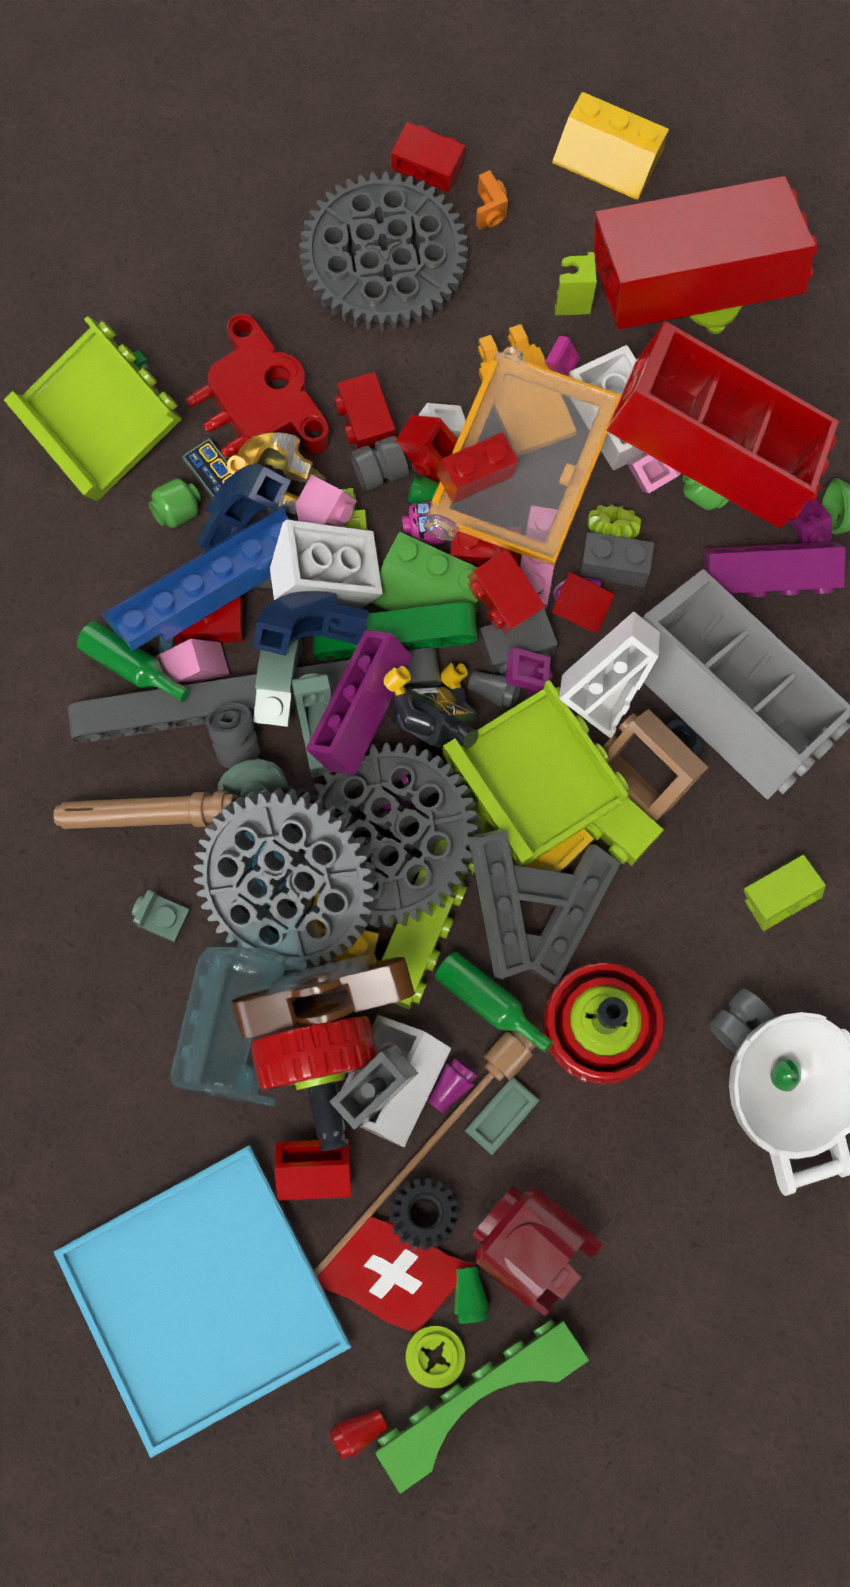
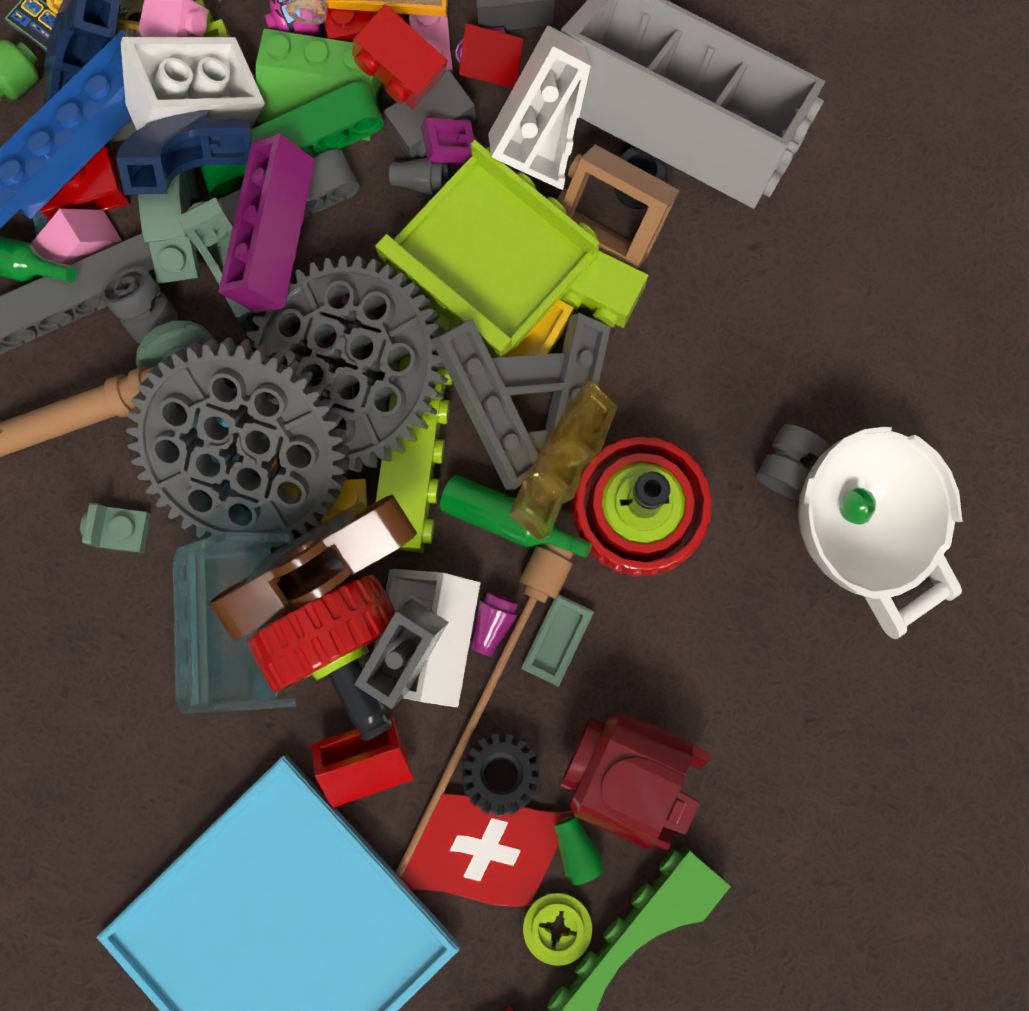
camera: 10 degrees left, 5 degrees up
(434, 713) = (356, 216): torso -> none
(551, 962) = (561, 460): none -> clear yellow slope
(784, 892) = (798, 308): lime hinge -> none

